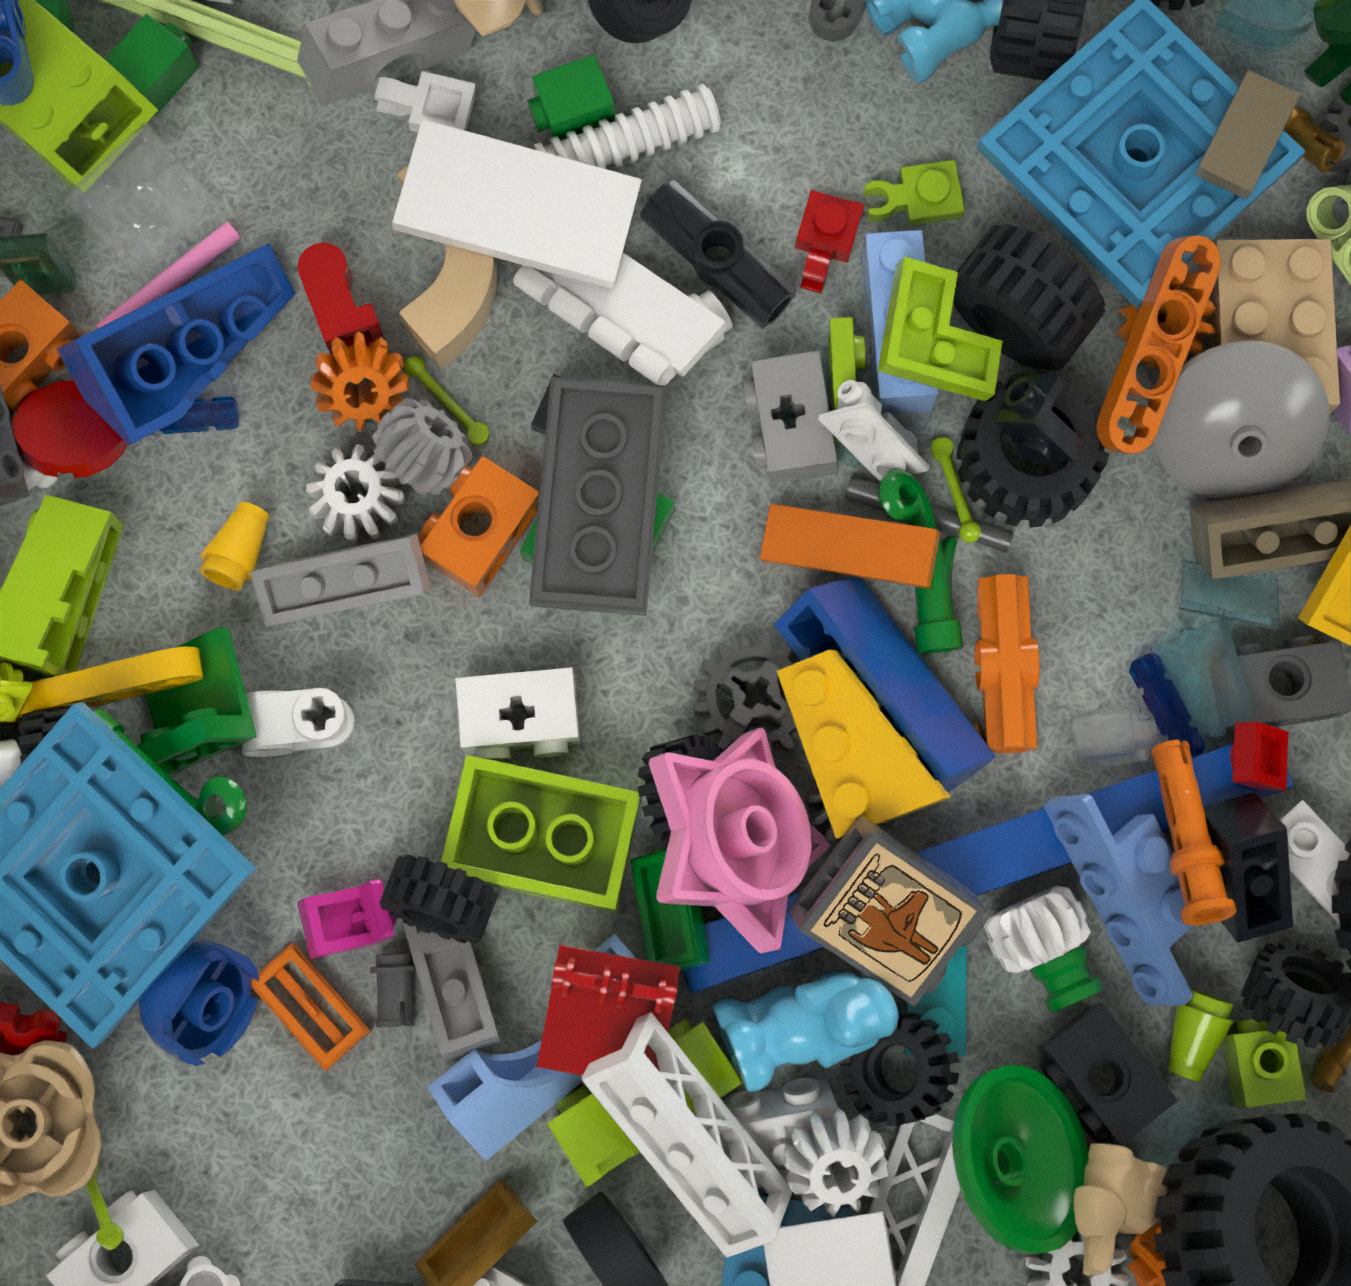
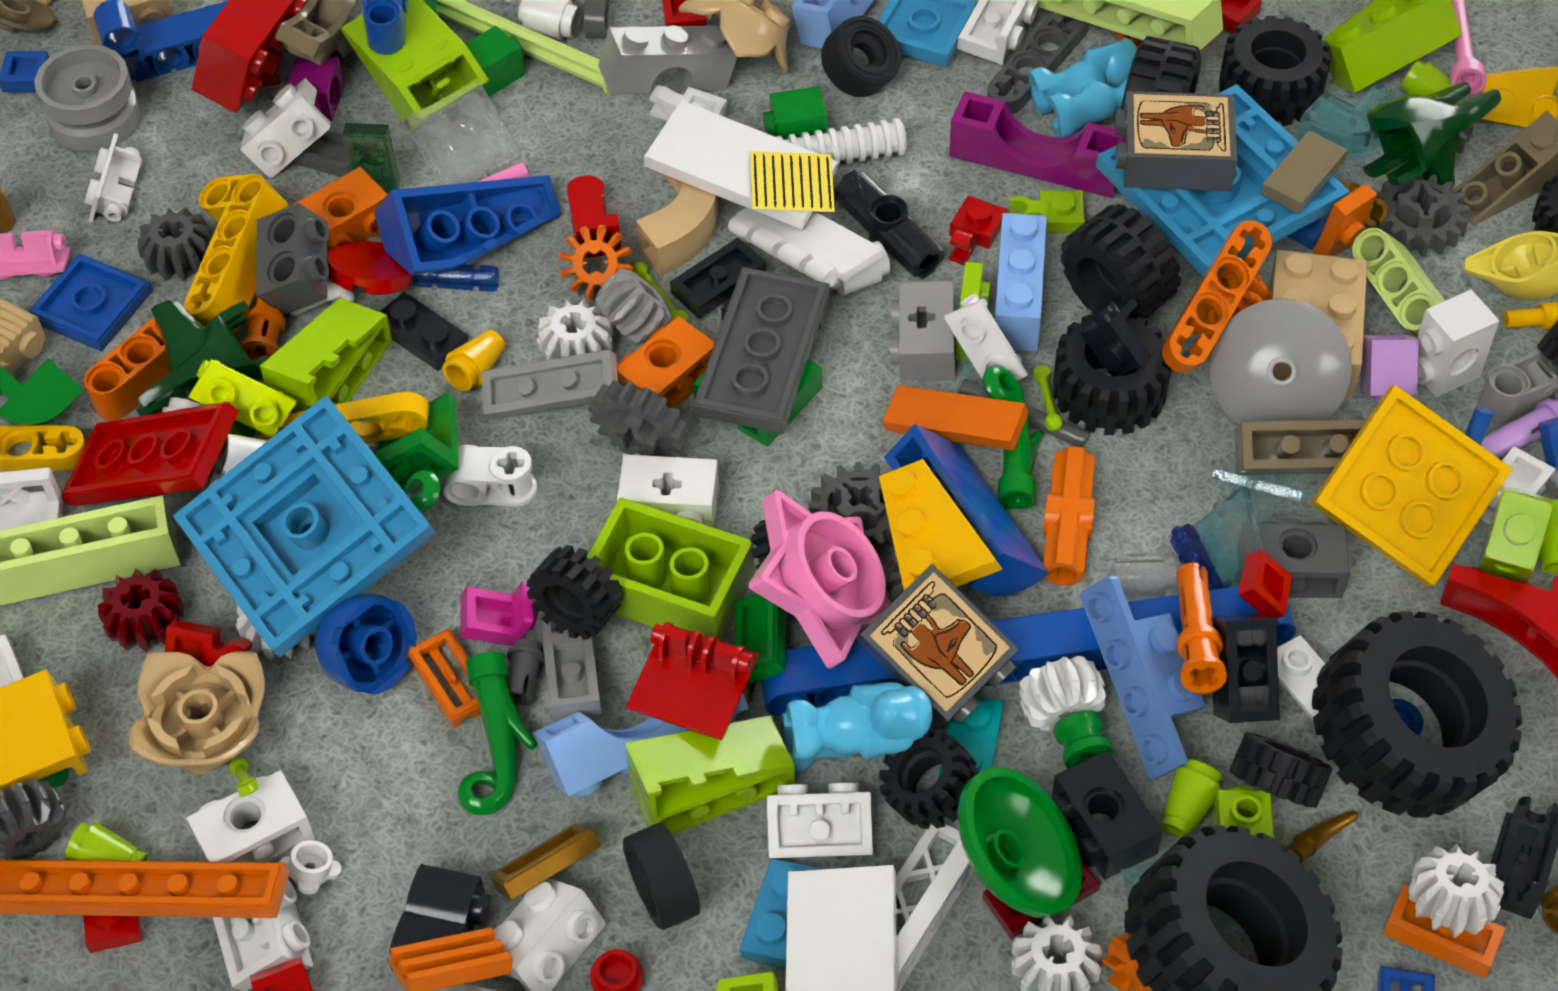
camera: 10 degrees right, 25 degrees down
(157, 507) = (422, 330): none -> black plate
(385, 1070) = (501, 722): none -> green plant
(464, 628) = (638, 420): none -> dark grey gear
(517, 370) = (714, 277): none -> black plate
(588, 225) = (791, 181): none -> light yellow sticker
(687, 1147) = (740, 778): white fence -> none
(834, 97) = (991, 136): none -> magenta arch
(842, 1182) = (869, 815): white gear -> none
(922, 343) = (1035, 277): lime plate -> none
(1083, 115) = (1177, 141): none -> brick
(1115, 1198) = (1094, 893): tan animal -> none
(1298, 184) = (1345, 222): none -> orange plate

